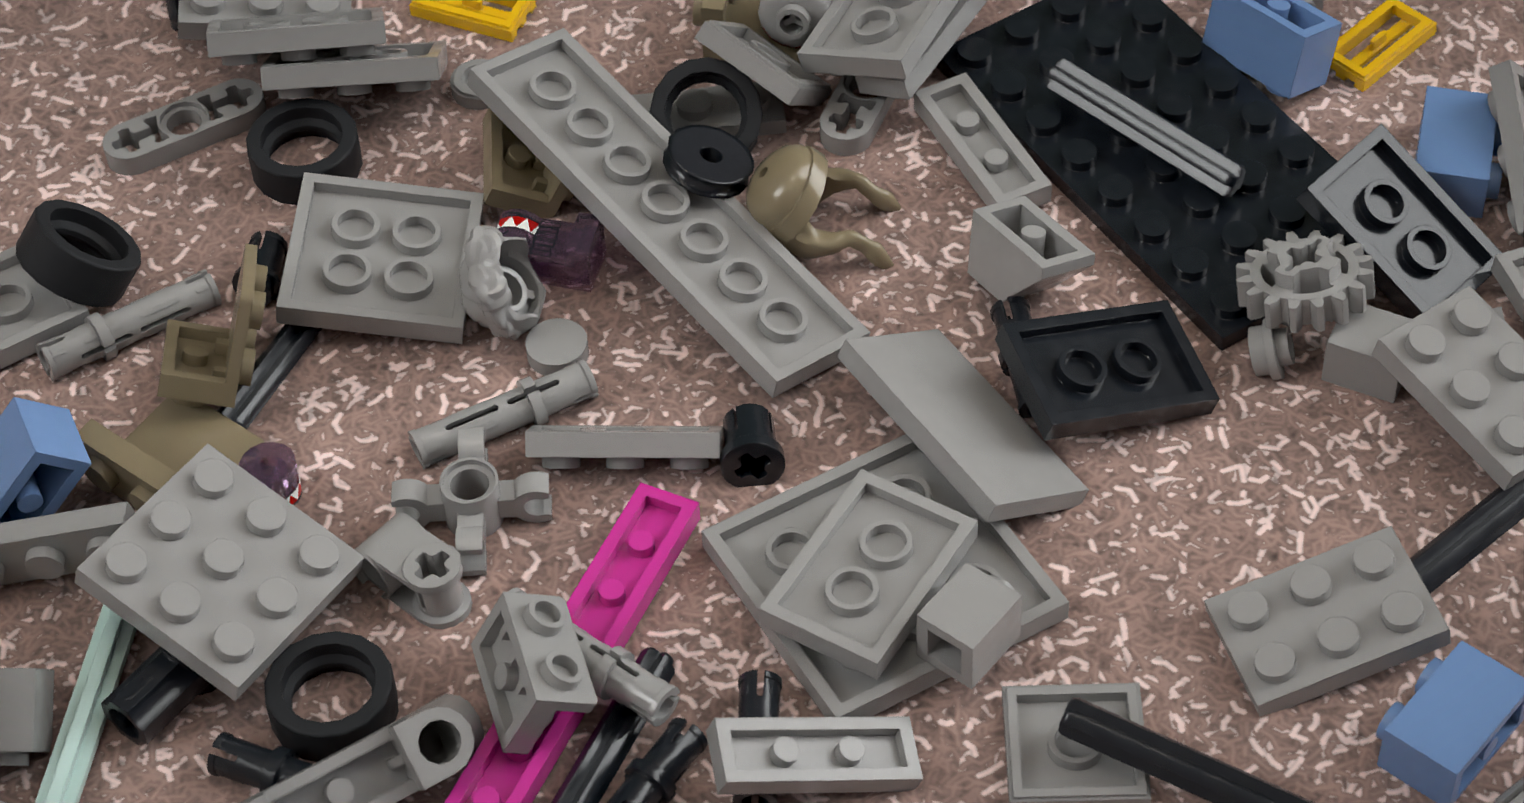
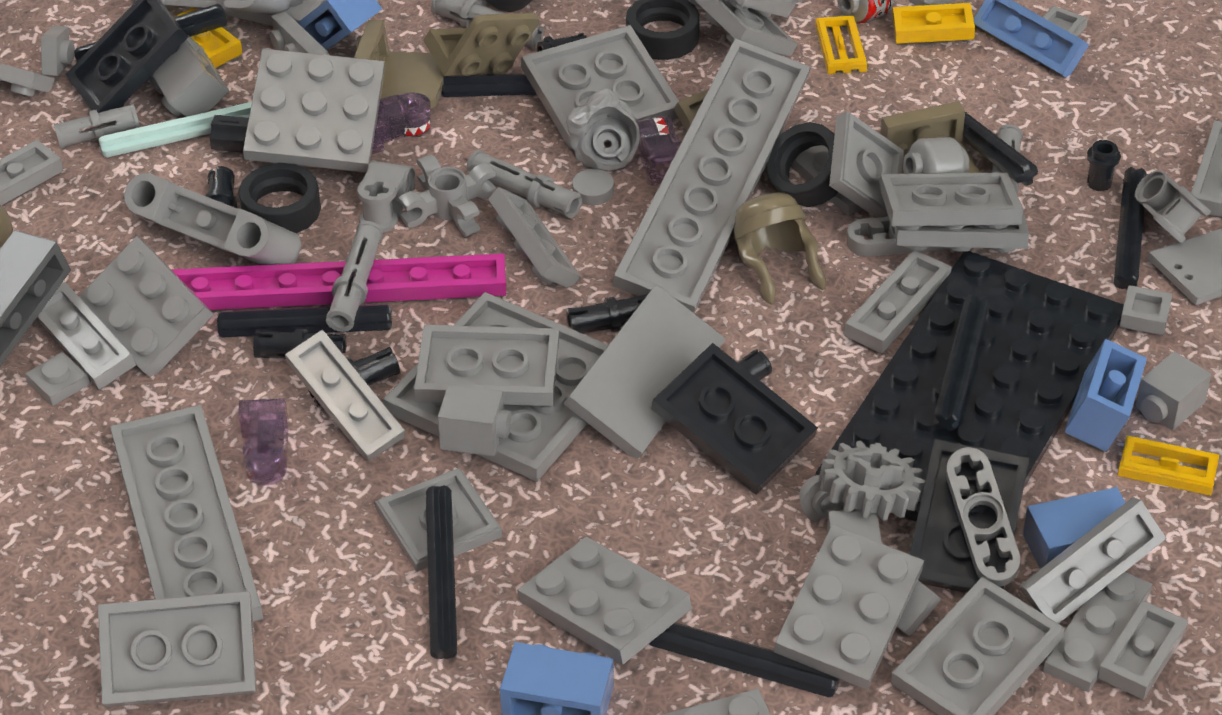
camera: 60 degrees right, 5 degrees down
(530, 667) = (324, 250): light grey bracket -> none
(708, 161) = (760, 158): black piece -> none
(750, 447) = (567, 290): black bush -> none
(818, 421) = (603, 316): none -> black pin
(1022, 249) = (800, 338): light grey slope -> none
(1401, 212) = (960, 487): none -> light grey beam

